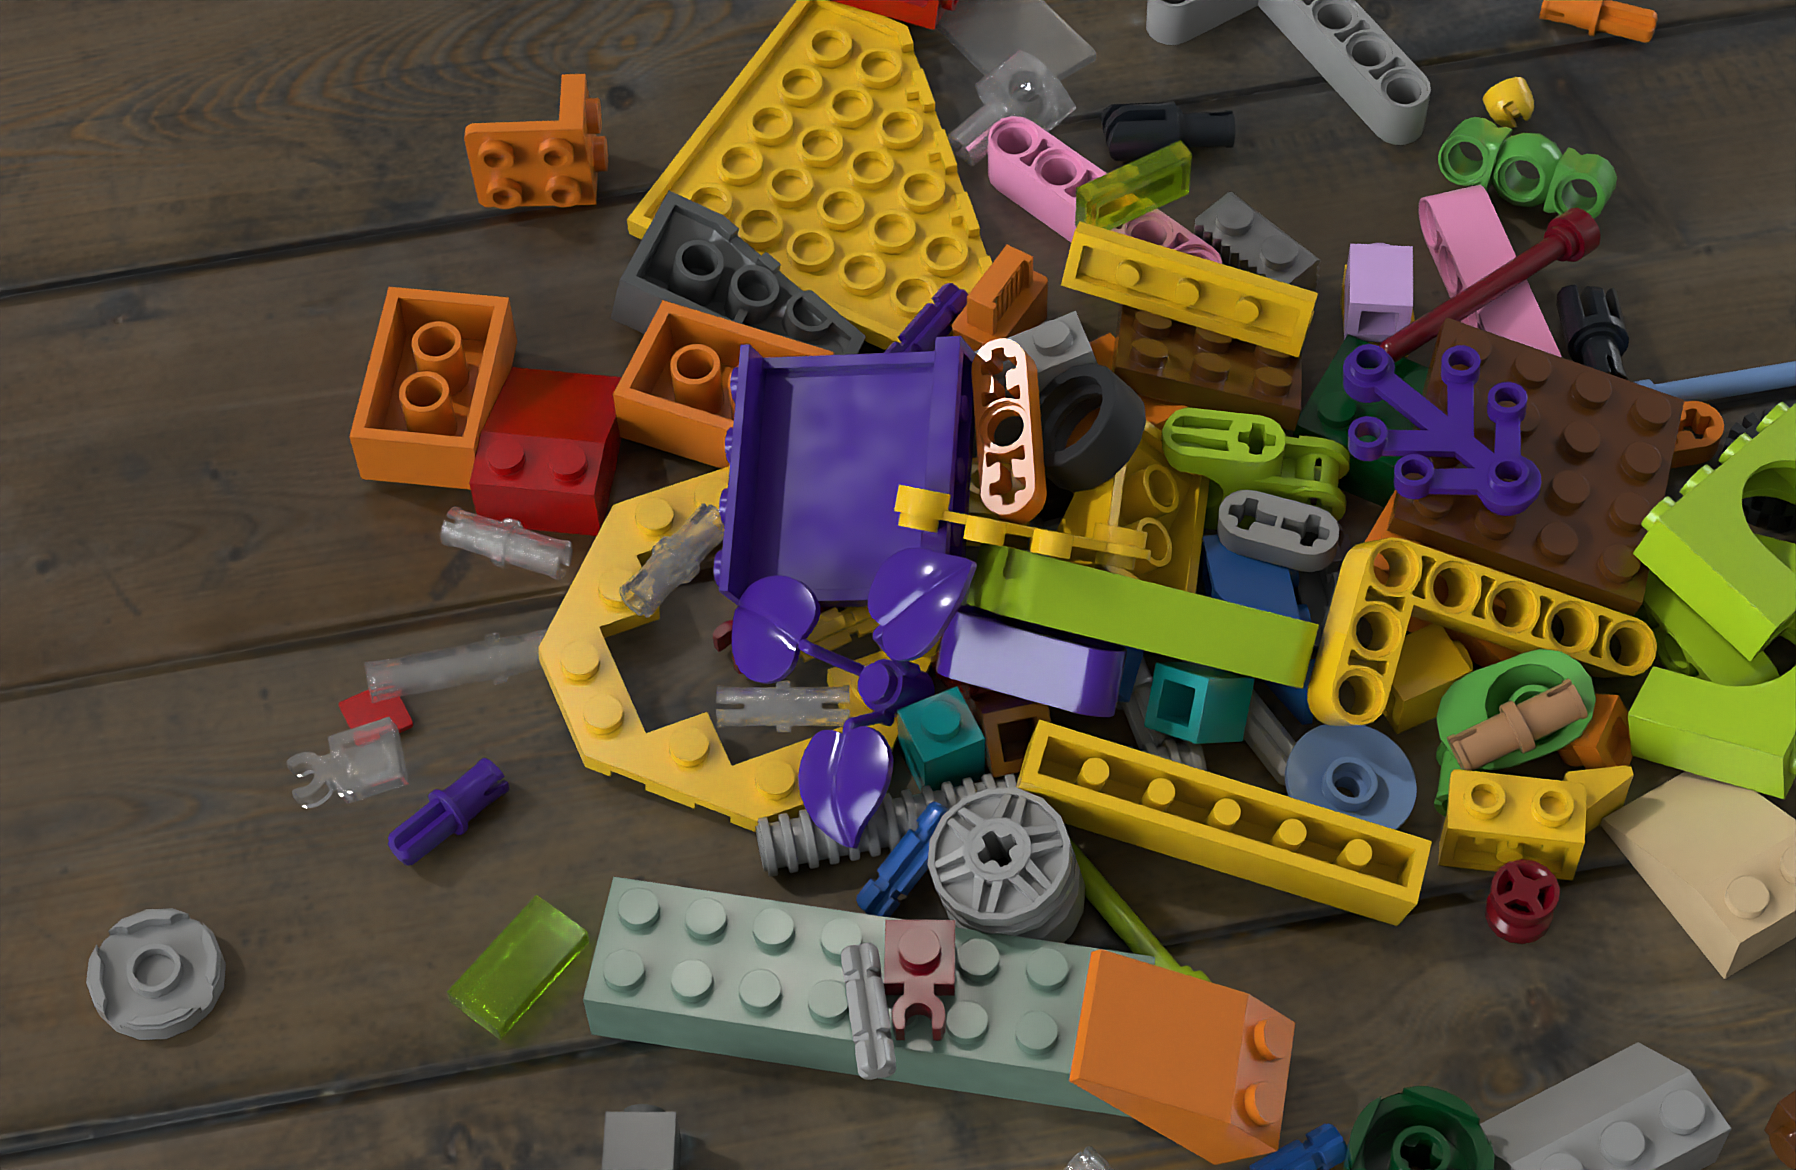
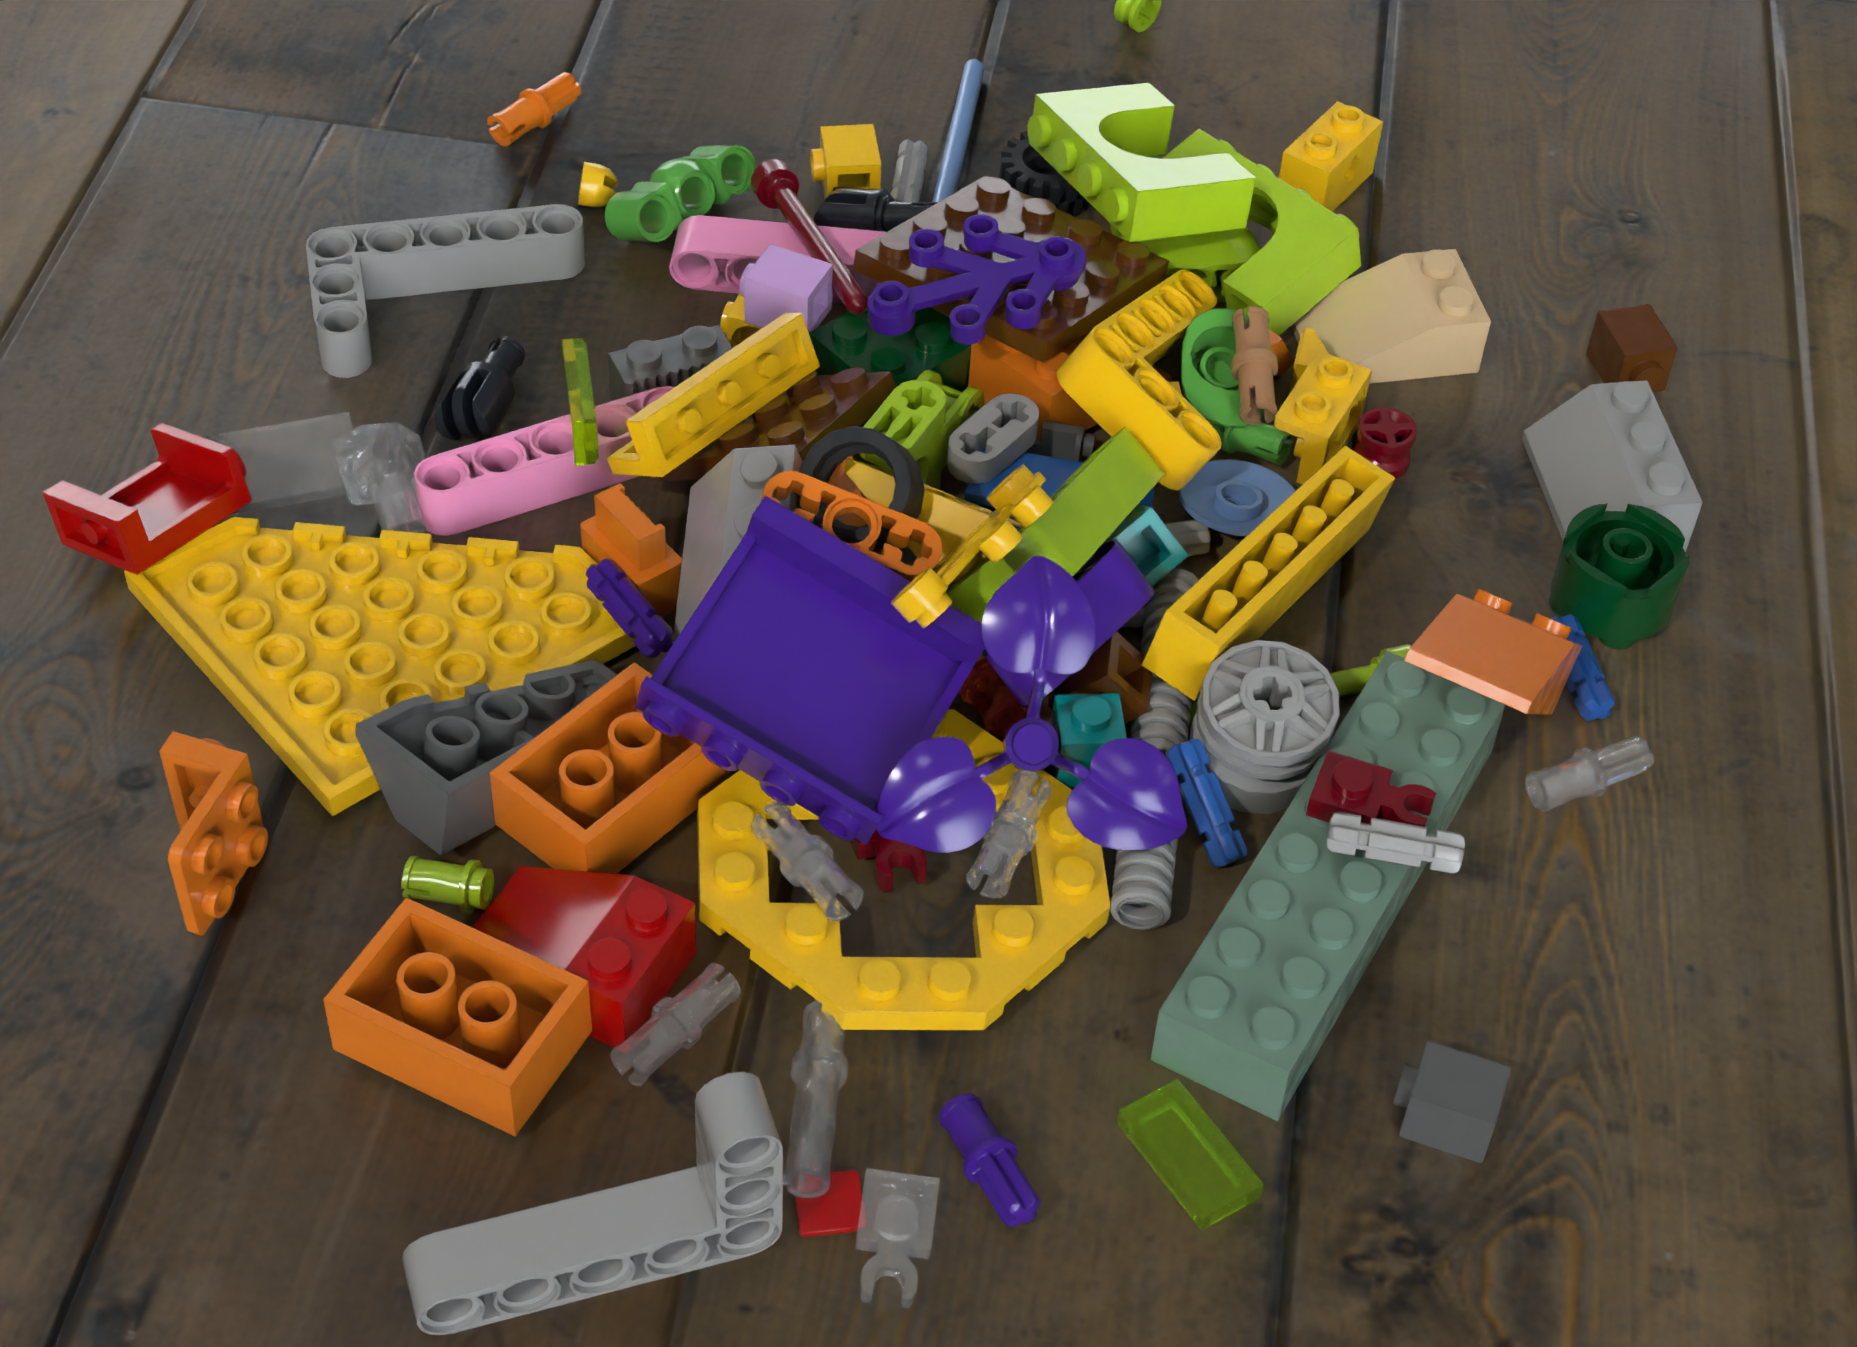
camera: 75 degrees left, 10 degrees down
(302, 593) = (614, 1235): none -> light grey beam
(585, 346) = (448, 883): none -> lime pin
(1668, 291) = (847, 158): none -> yellow brick
(1693, 352) = (909, 171): none -> light grey axle

